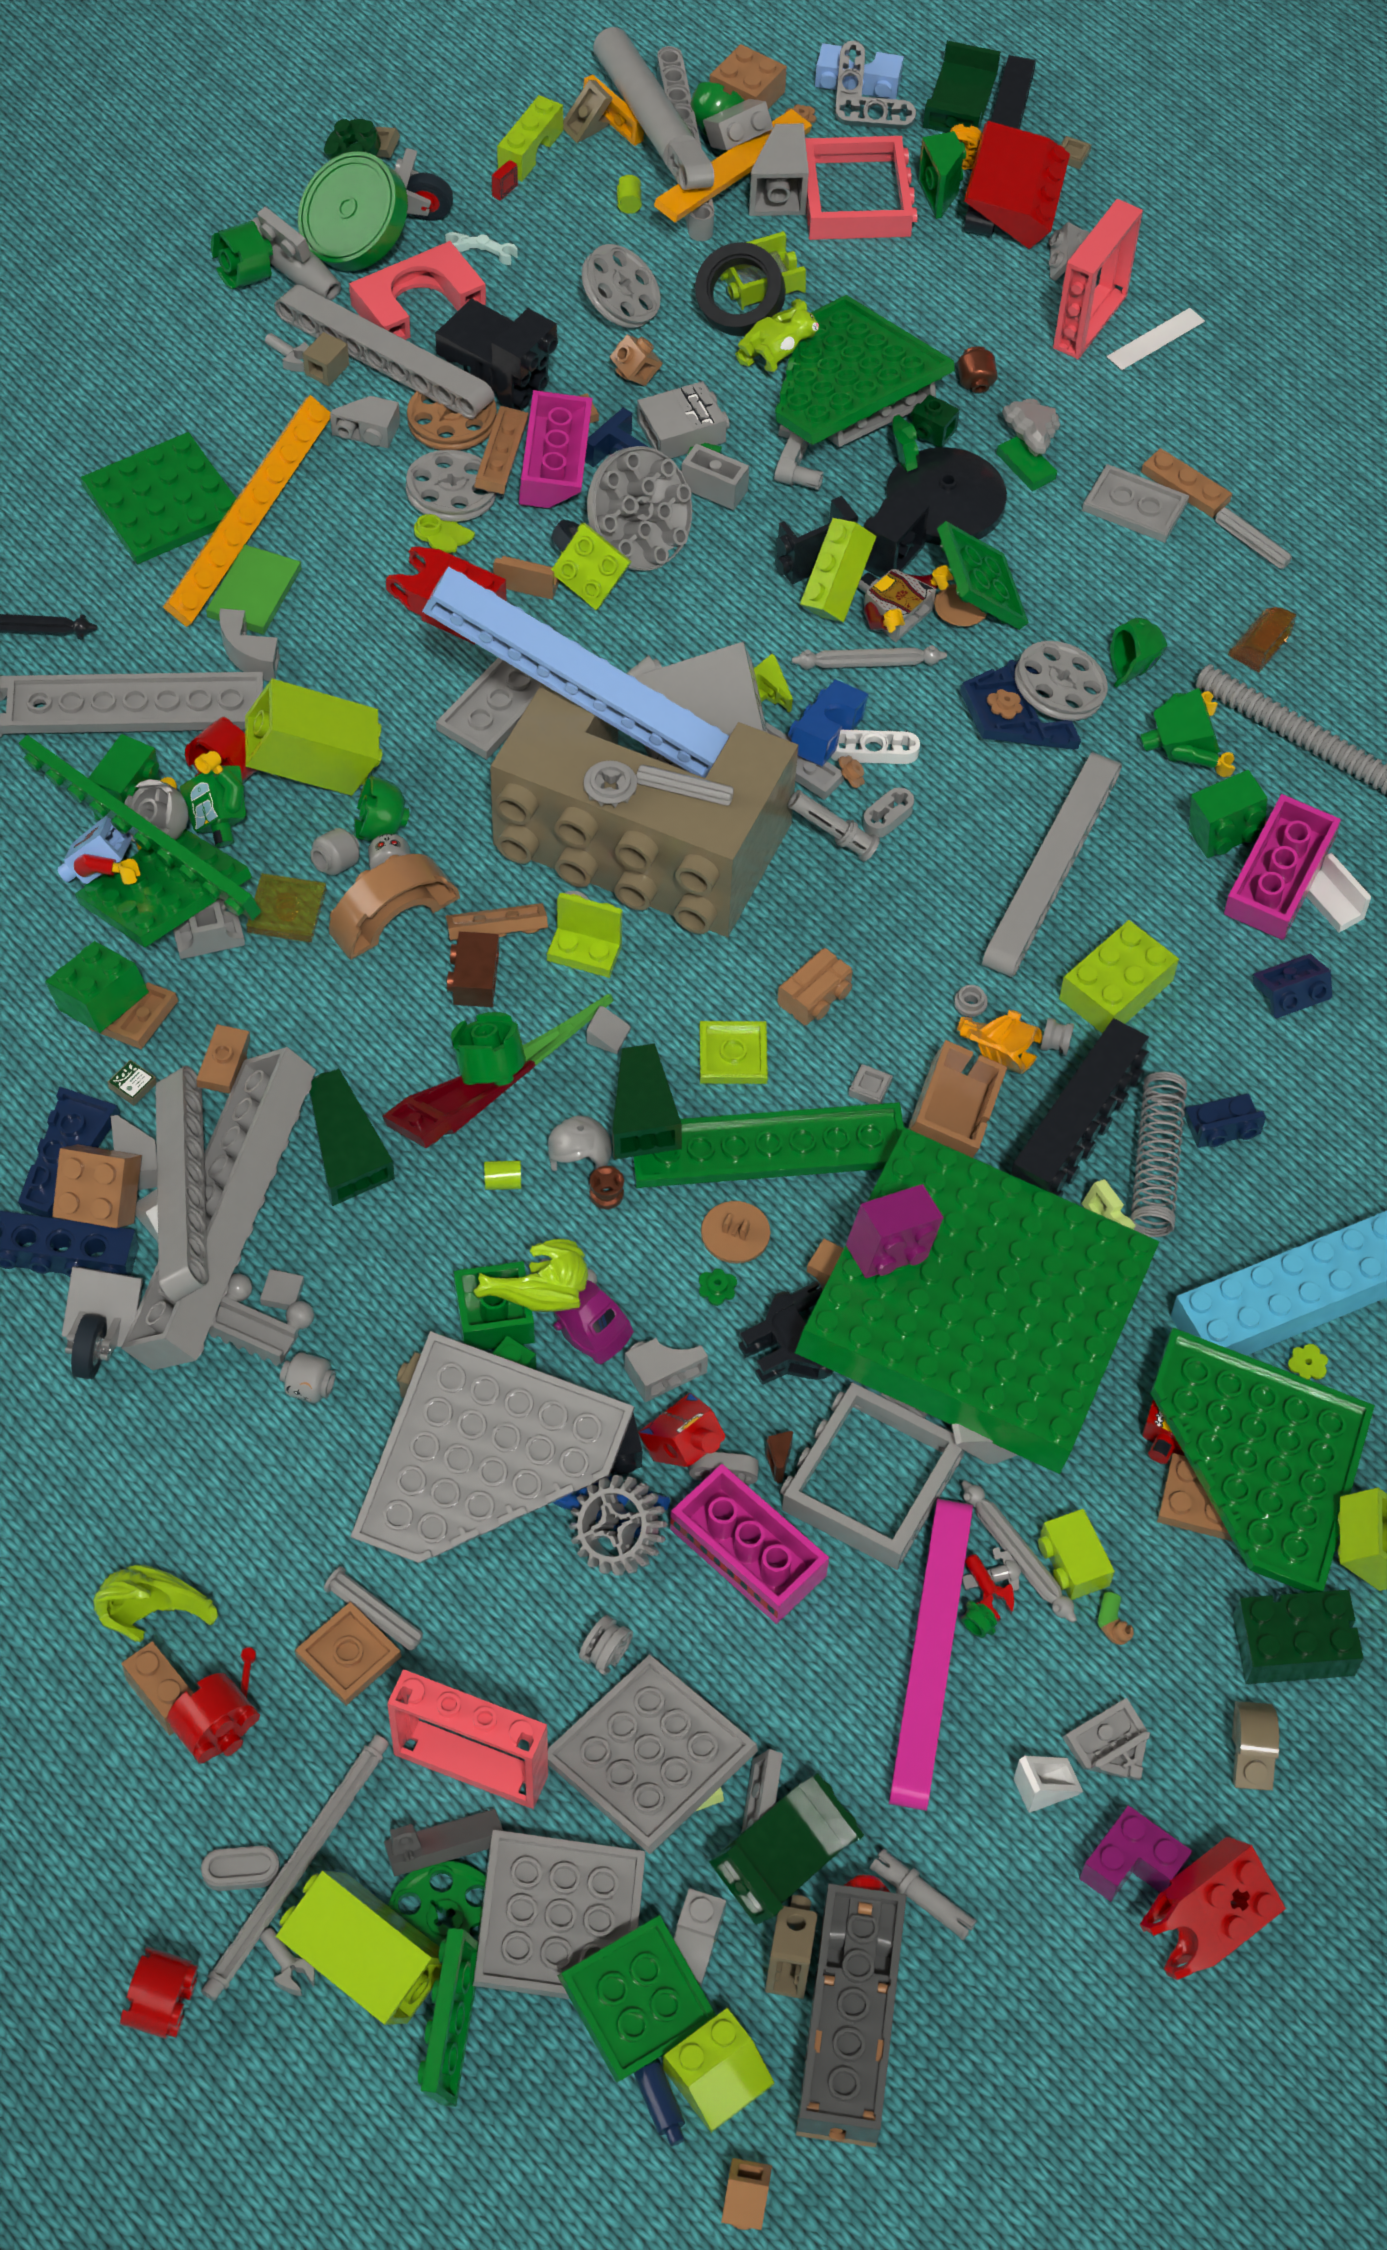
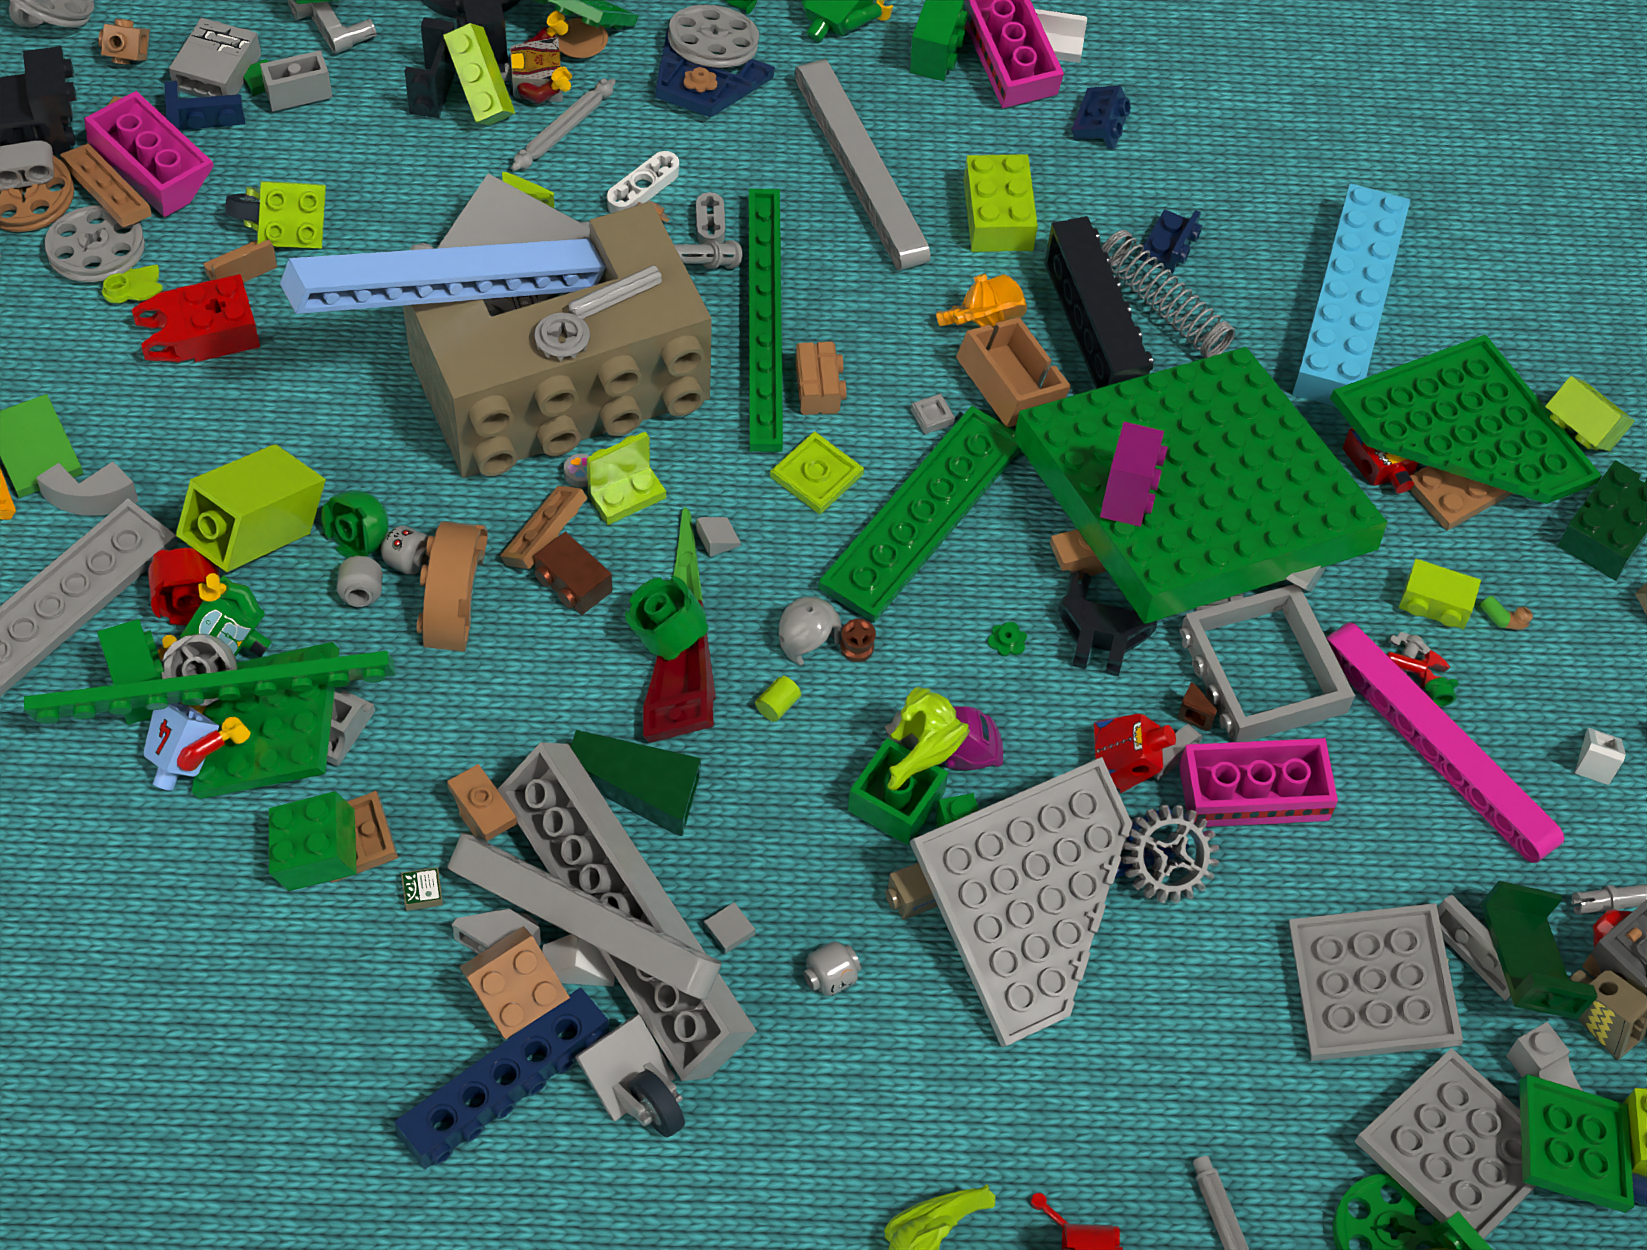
camera: 50 degrees left, 0 degrees up
(73, 1122) = (429, 970): dark blue wing -> none
(257, 1330) = (761, 969): light grey gear -> none
(288, 907) = (375, 636): clear yellow plate -> none
(348, 1653) = (1105, 1126): medium nougat plate -> none
(373, 1609) = (1080, 1079): light grey axle -> none
(415, 1850) = (1327, 1182): dark grey hinge -> none
(462, 1758) = (1283, 1088): coral window -> none
(489, 708) = (338, 370): light grey plate -> none
(605, 1644) = (1258, 941): light grey wheel -> none
(641, 506) = (274, 139): light grey bracket -> none
(644, 1106) = (819, 556): dark green slope -> none
(659, 1369) = (1048, 726): light grey arch -> none
(735, 1232) = (972, 591): medium nougat piece -> none
(819, 729) = (595, 183): blue arch -> none
(833, 914) = (765, 322): none -> green plate
(974, 994) = (924, 293): light grey plate -> none
(1021, 1553) = (1394, 624): light grey wheel -> none
(1057, 1036) = (1014, 268): light grey wheel -> none
(1106, 1202) = (1177, 353): yellowish green plate -> none
(1111, 1742) = (1598, 691): light grey slope -> none
(1308, 1355) = (1404, 347): lime plant -> none

